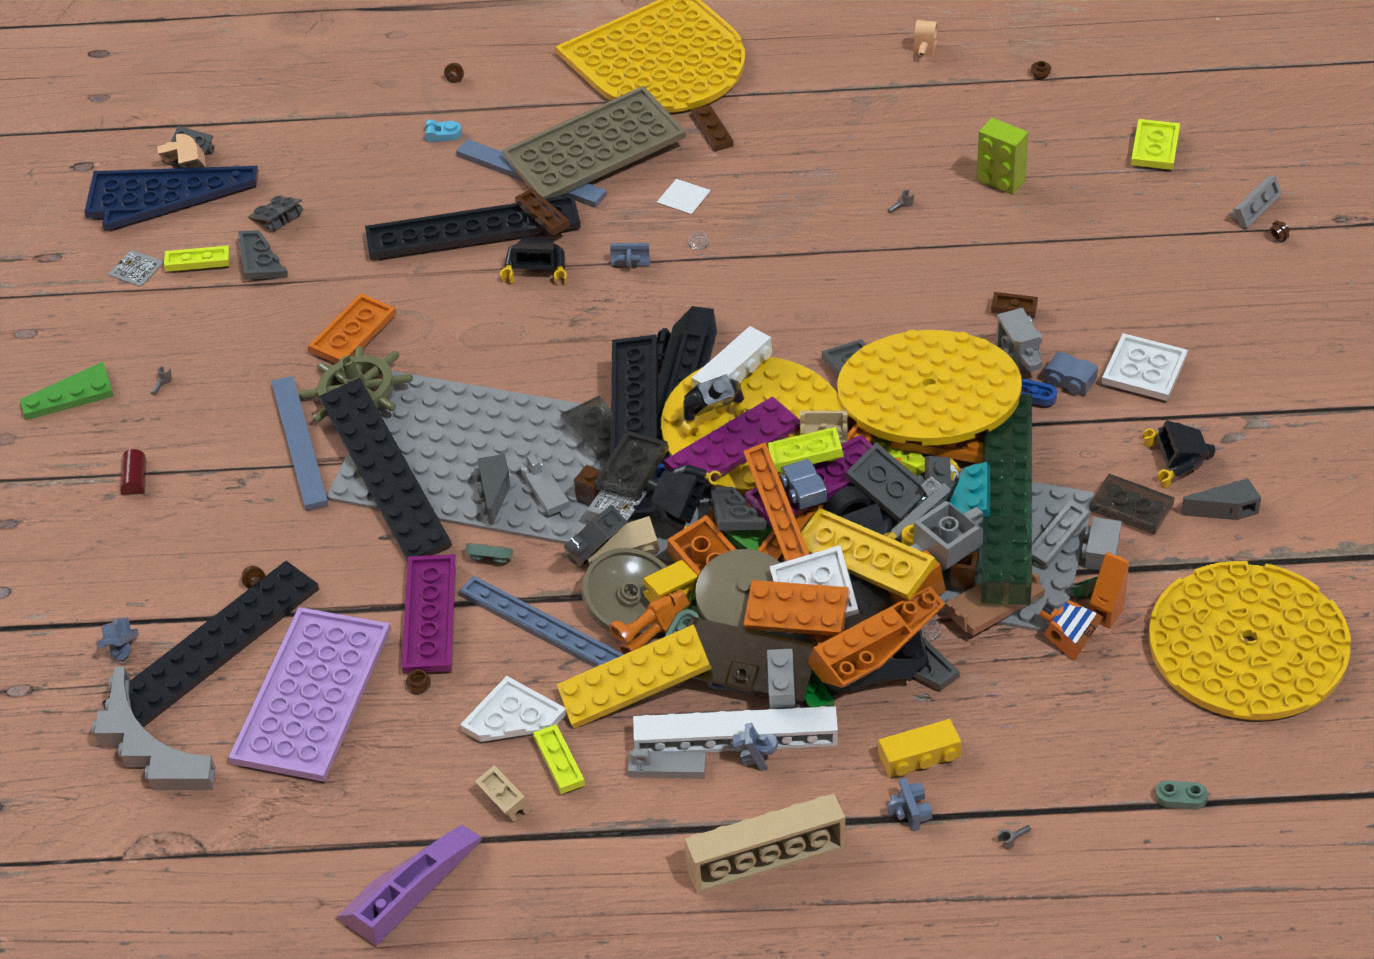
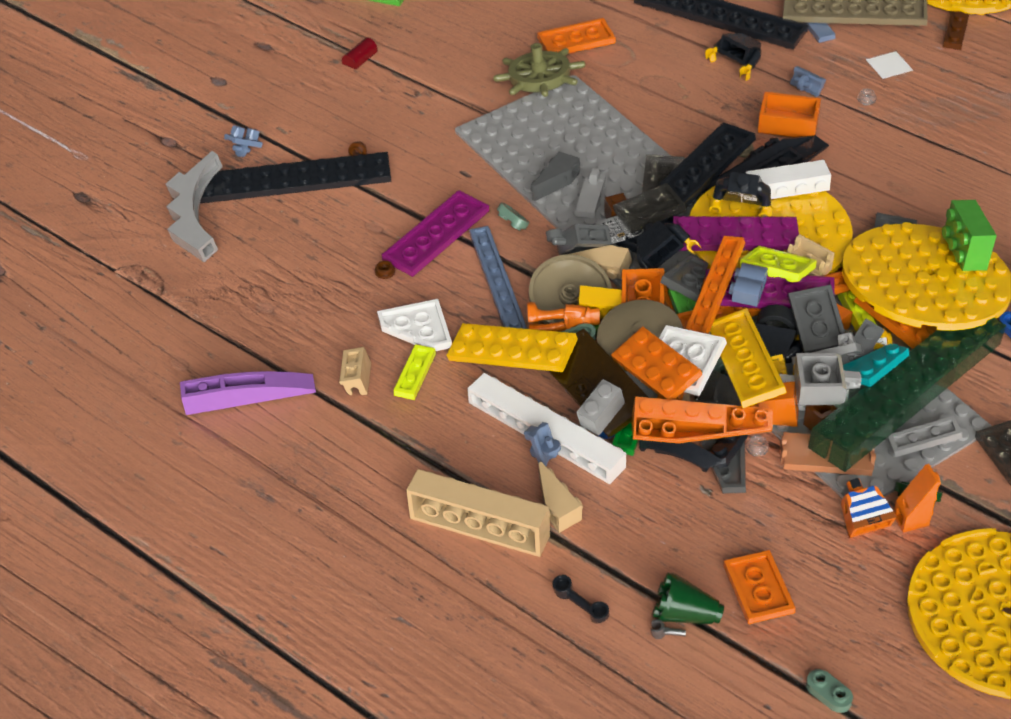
camera: 40 degrees right, 0 degrees up
(164, 377) = (438, 9): flat silver hand -> none
(299, 443) = (472, 89): sand blue tile -> none
(310, 694) = (314, 239): lavender plate -> none
(385, 470) = (499, 130): black plate -> none
(542, 211) = (771, 24): reddish brown plate -> none
(652, 298) = (789, 115): none -> orange piece
(666, 764) = (480, 420): light grey hinge -> none
(808, 783) = (563, 506): none -> tan slope
(906, 804) = (607, 556): sand blue hips -> none
(919, 748) = (660, 522): yellow brick -> none
(939, 327) = (969, 235): none -> bright green brick
(947, 860) = (563, 589): none -> black bar
(1009, 801) = (685, 603): none -> dark green cone
(1050, 748) = (759, 587): none -> orange plate
(1102, 537) = (958, 466): light grey brick -> none

